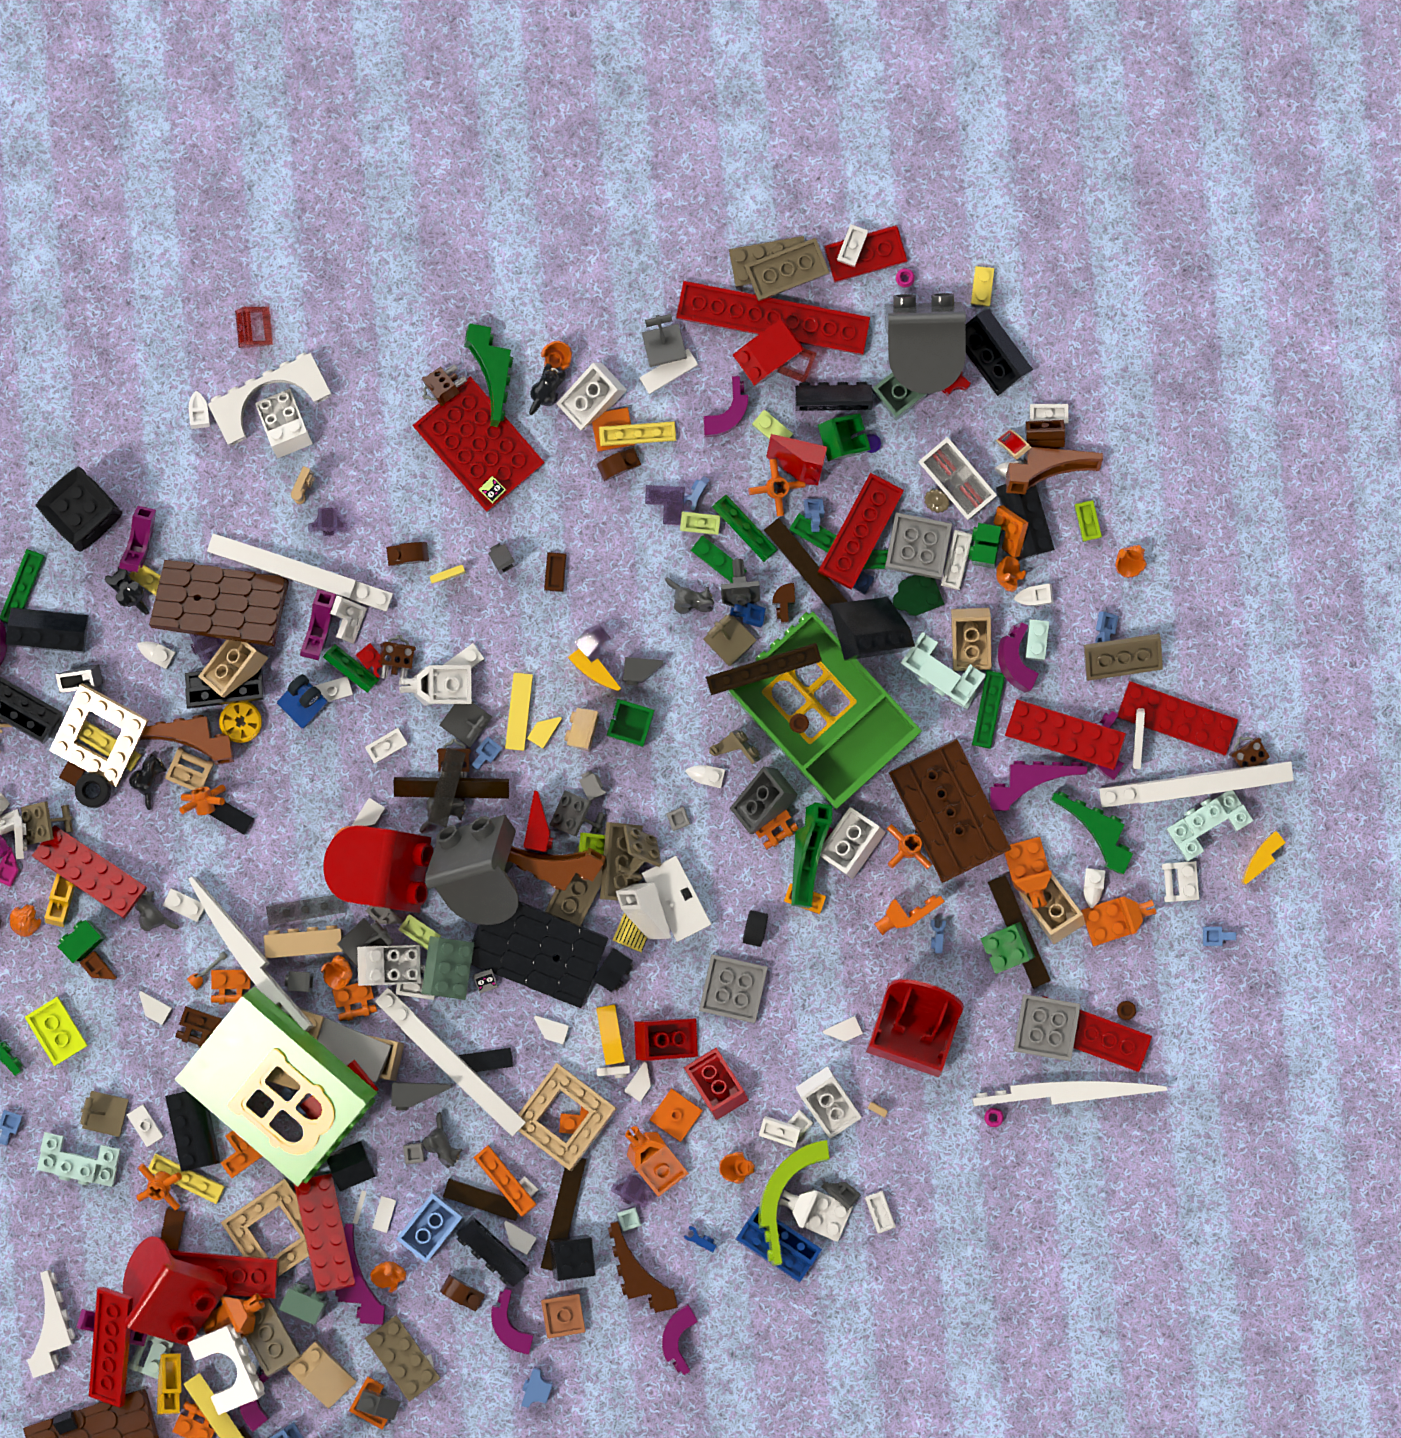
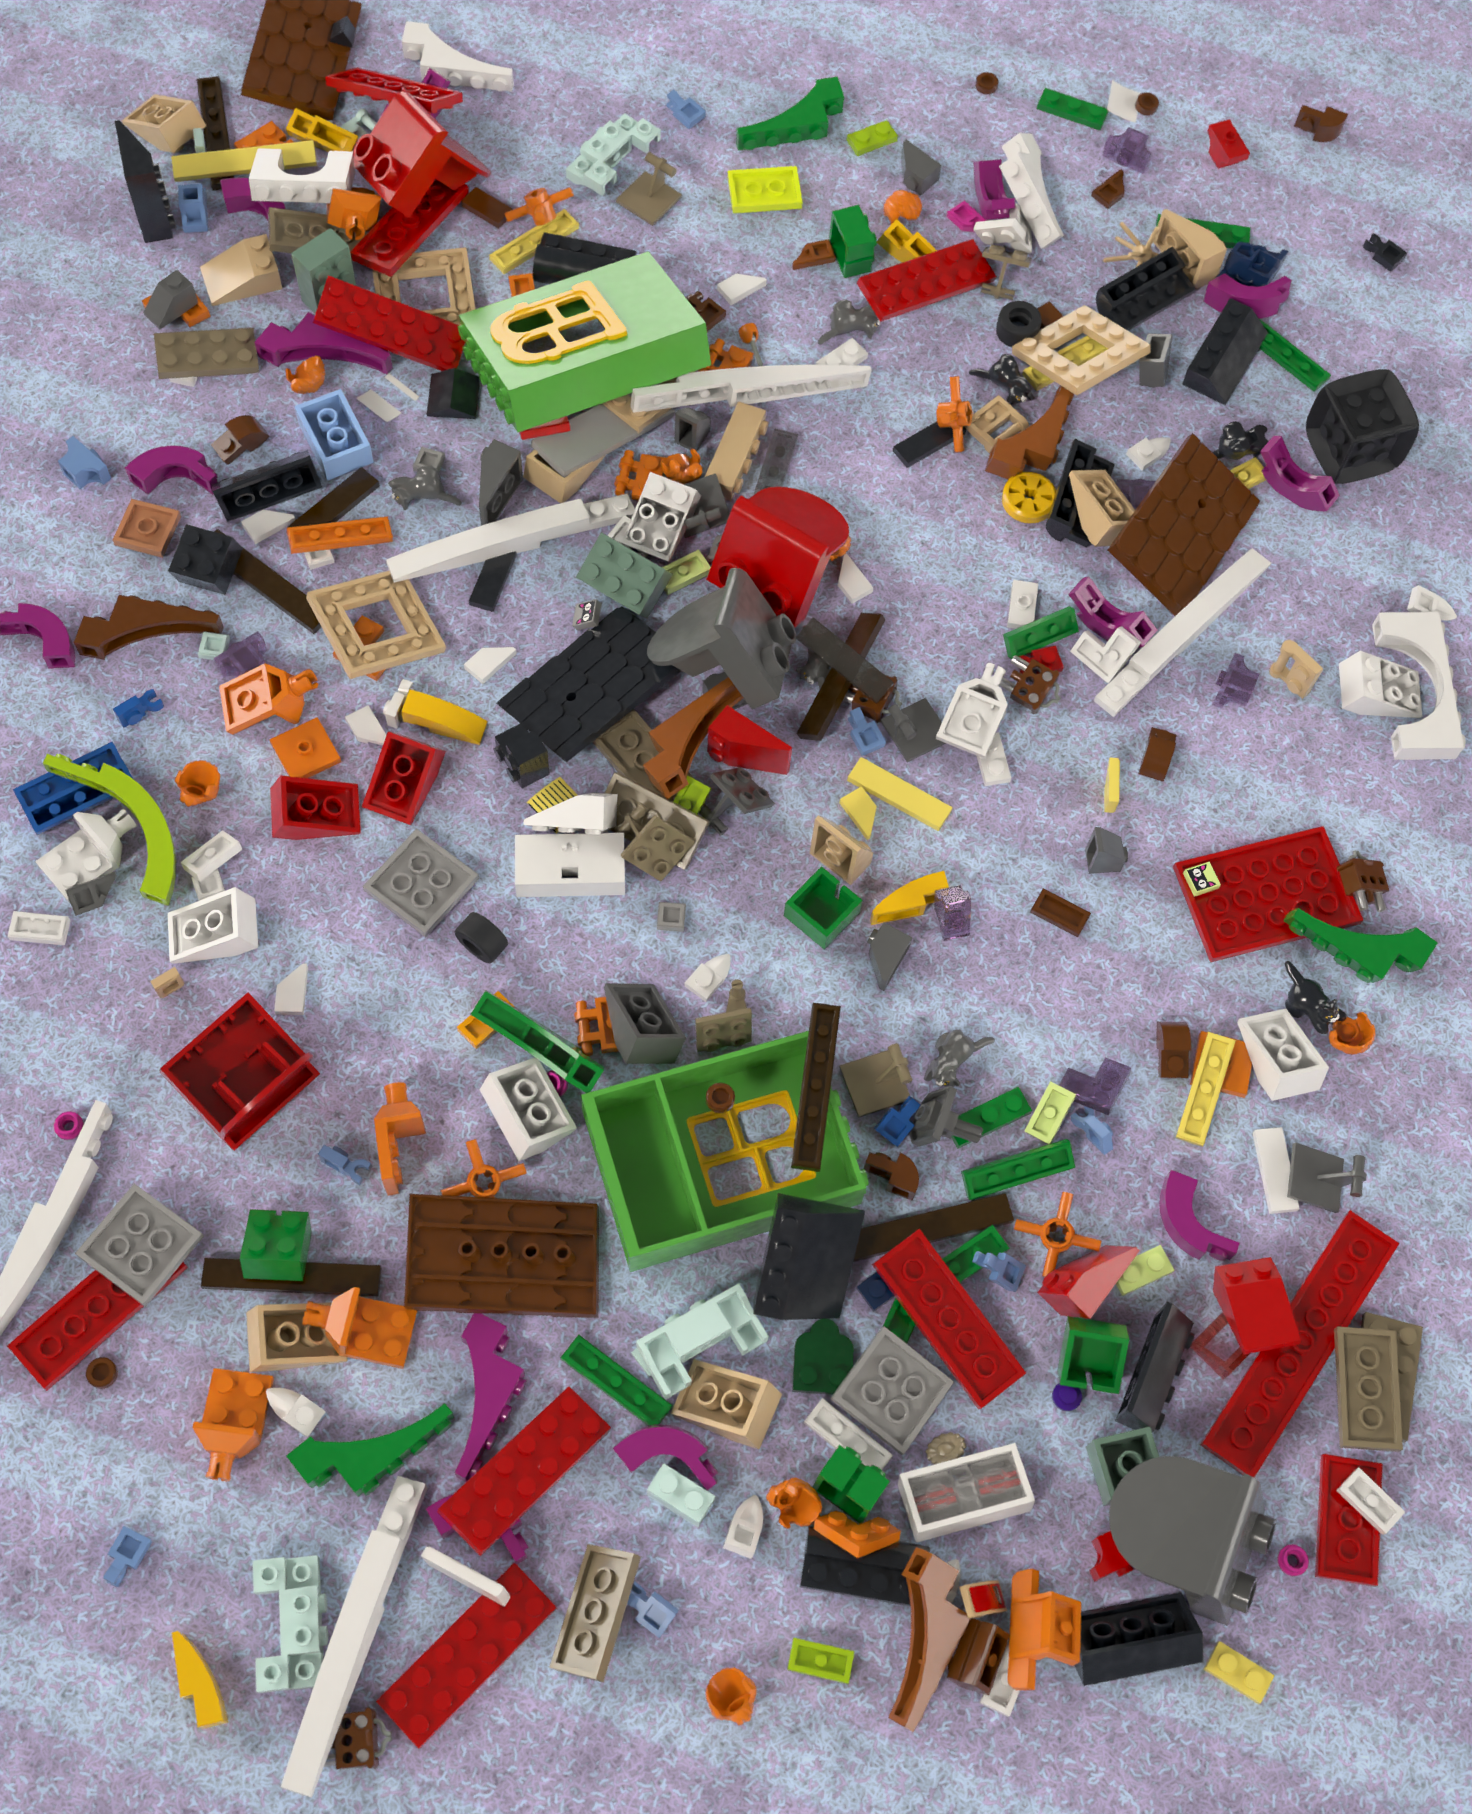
camera: 110 degrees right, 20 degrees down
(145, 1125) = (614, 228): white plate -> none
(302, 701) = (1028, 563): blue plate -> none
(386, 745) = (927, 631): white plate -> none
(591, 785) = (764, 831): light grey window -> none
(1015, 405) = (1040, 1628): none -> orange plate
(1186, 878) = (228, 1550): white plate -> none

